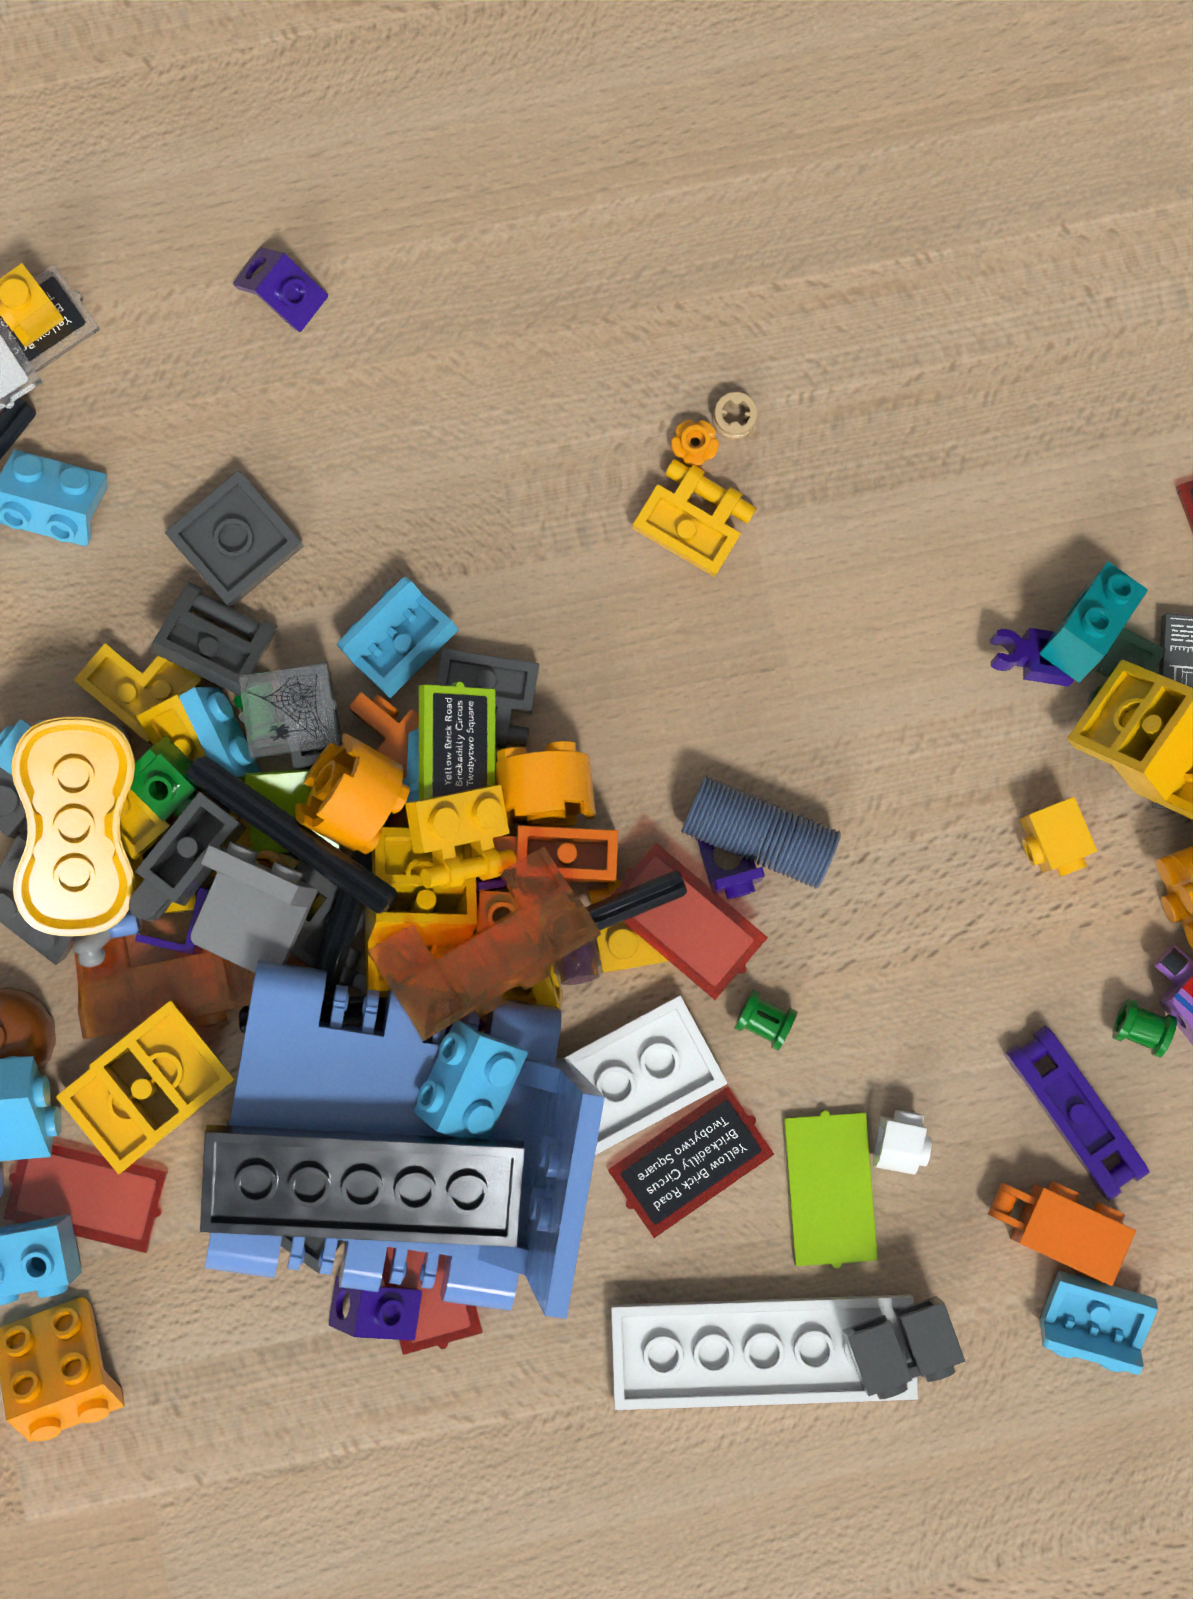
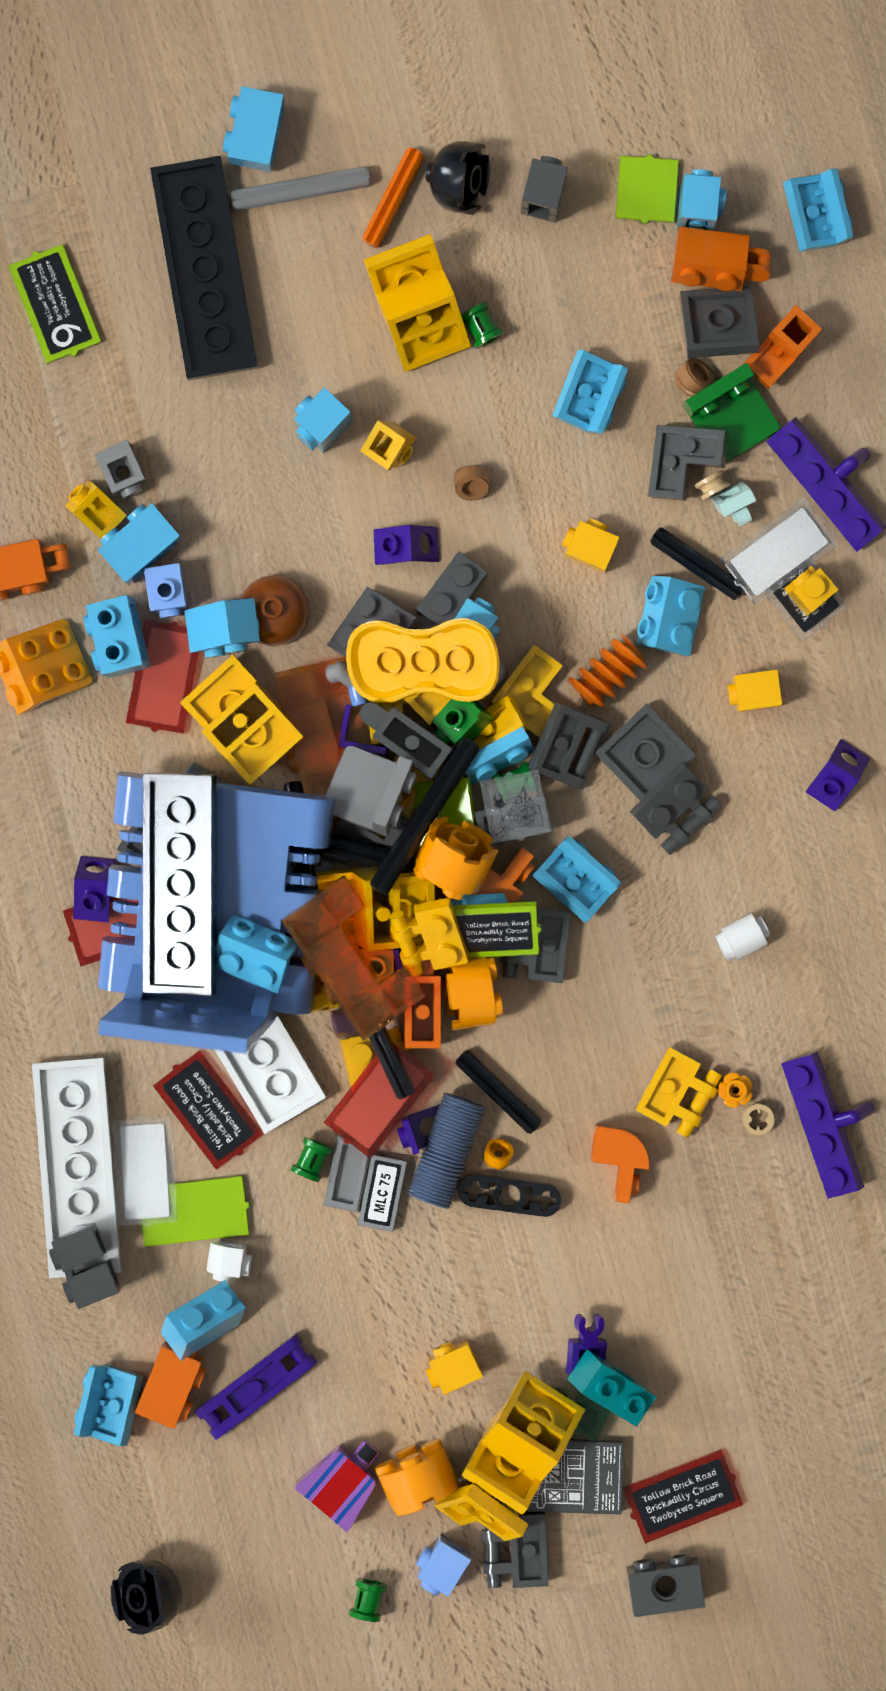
camera: 90 degrees right, 5 degrees up
(116, 582) = (608, 672): none -> orange piece
(156, 385) = (755, 691): none -> yellow brick
(301, 510) = (669, 801): none -> dark grey plate
(489, 421) = (742, 937): none -> white brick
(683, 759) = (498, 1091): none -> black axle
(746, 326) = (825, 1124): none -> dark purple plate
(758, 759) = (501, 1146): none -> light orange hinge
(771, 590) = (620, 1148): none -> orange brick
(772, 1255) = (144, 1171): none -> clear piece
(791, 973) = (346, 1177): none -> light grey tile
(815, 924) = (382, 1192): none -> tile
(843, 718) = (537, 1190): none -> black beam
(985, 1182) = (203, 1320): none -> medium azure brick
(1144, 1027) = (318, 1433): green bush -> none

